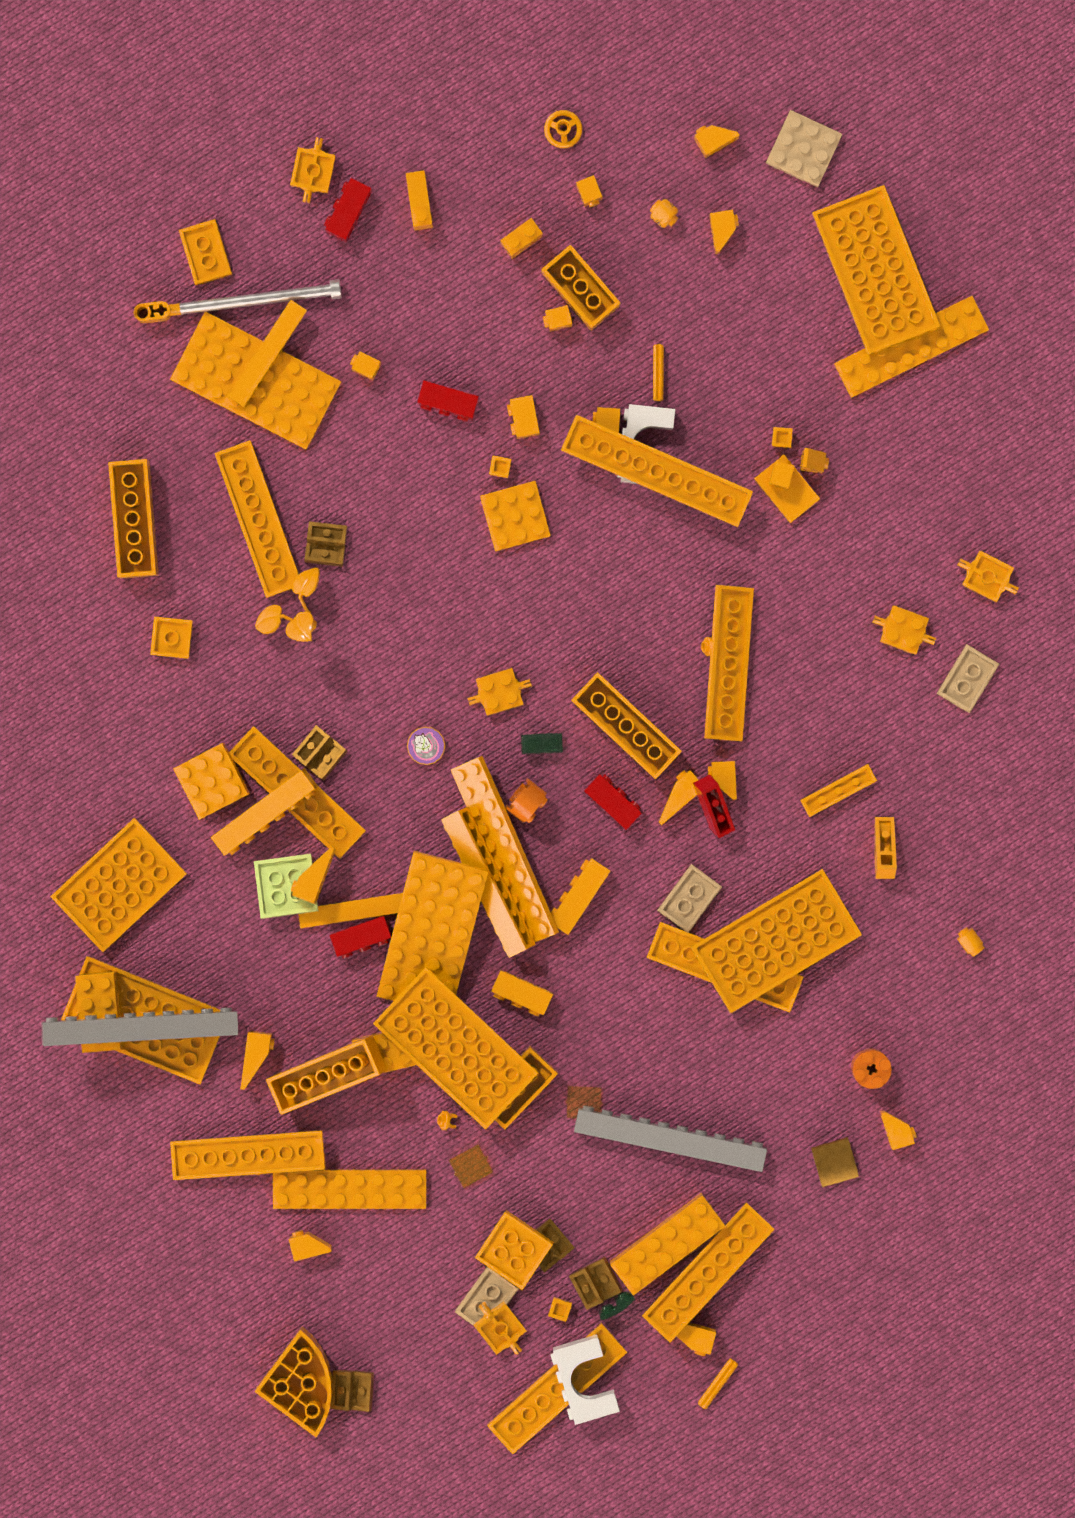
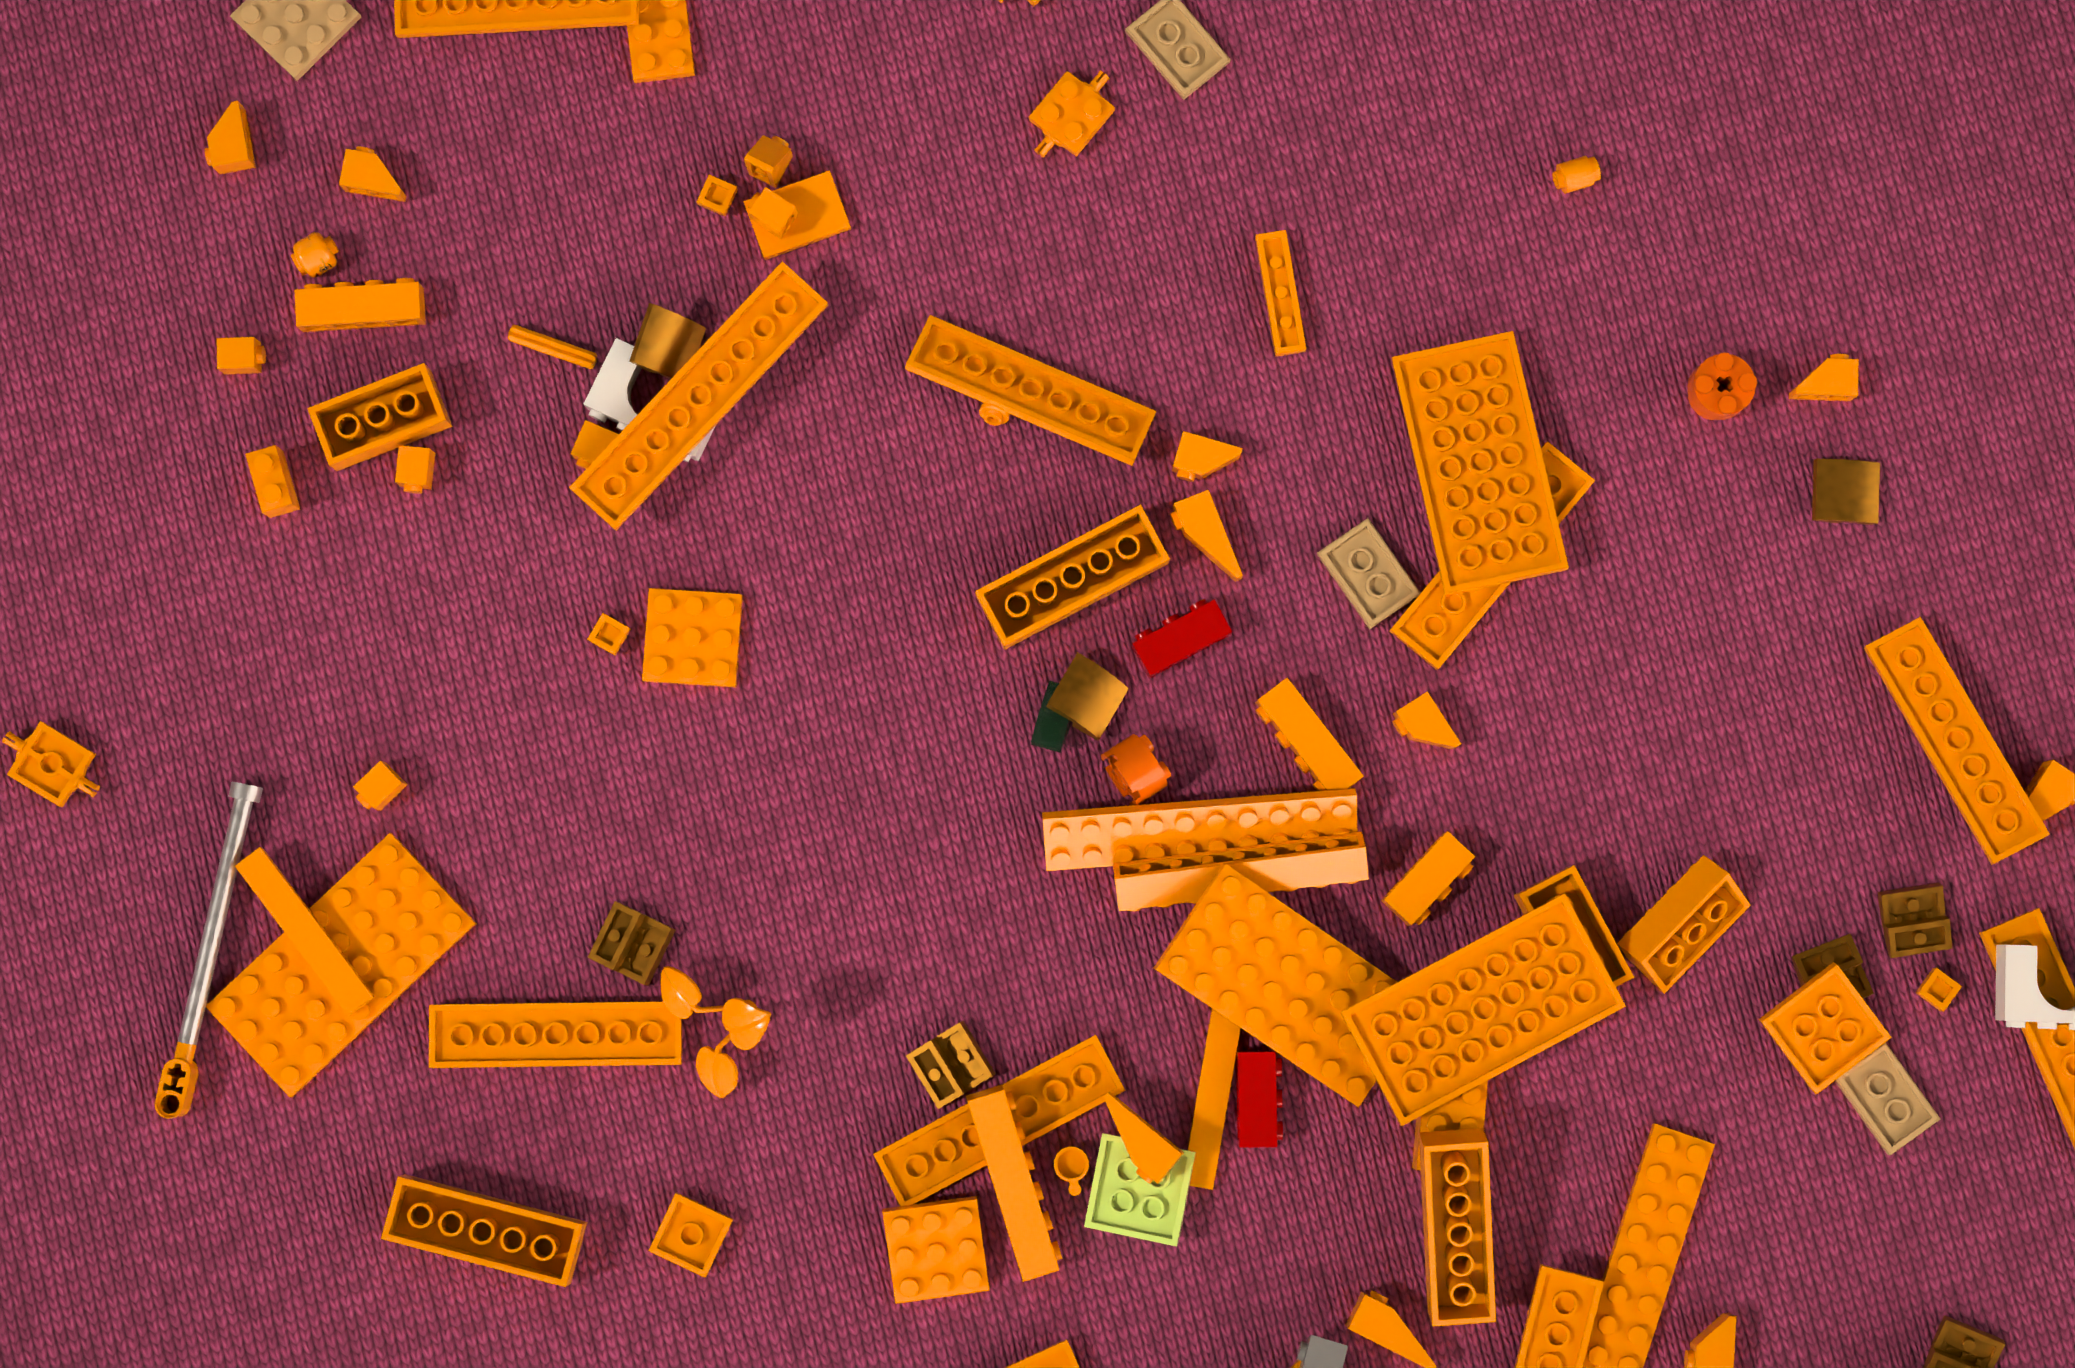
camera: 75 degrees left, 5 degrees down
(205, 252) = (115, 974): light orange tile -> none
(285, 842) = (1071, 1165): none -> light orange piece
(347, 209) = (130, 731): red brick -> none
(419, 200) = (159, 617): light orange slope -> none
(426, 745) = (996, 896): tile -> none
(444, 1120) = (1586, 1067): light orange plate -> none
(447, 401) = (479, 679): red brick -> none
(470, 1166) = (1670, 1051): clear yellow piece -> none
(499, 692) = (953, 754): light orange plate -> none
(500, 1328) = (1939, 1092): light orange plate -> none
(524, 417) = (546, 572): light orange brick -> none
(547, 1149) = (1684, 923): none -> light orange slope
(559, 758) = (1087, 696): none -> pearl gold slope
(563, 122) = (121, 358): light orange piece -> none
(582, 1096) = (1628, 842): piece -> none
(612, 960) = (1425, 723): none -> light orange slope
(622, 1302) = (1958, 887): clear green slope -> none
(642, 251) = (360, 306): none -> light orange brick
(667, 1243) = (1890, 789): light orange brick -> none
(670, 1139) = (1729, 729): light grey brick -> none
(682, 439) = (666, 341): none -> pearl gold slope
(714, 806) = (1242, 484): red brick -> none
(885, 848) = (1393, 253): light orange slope -> none

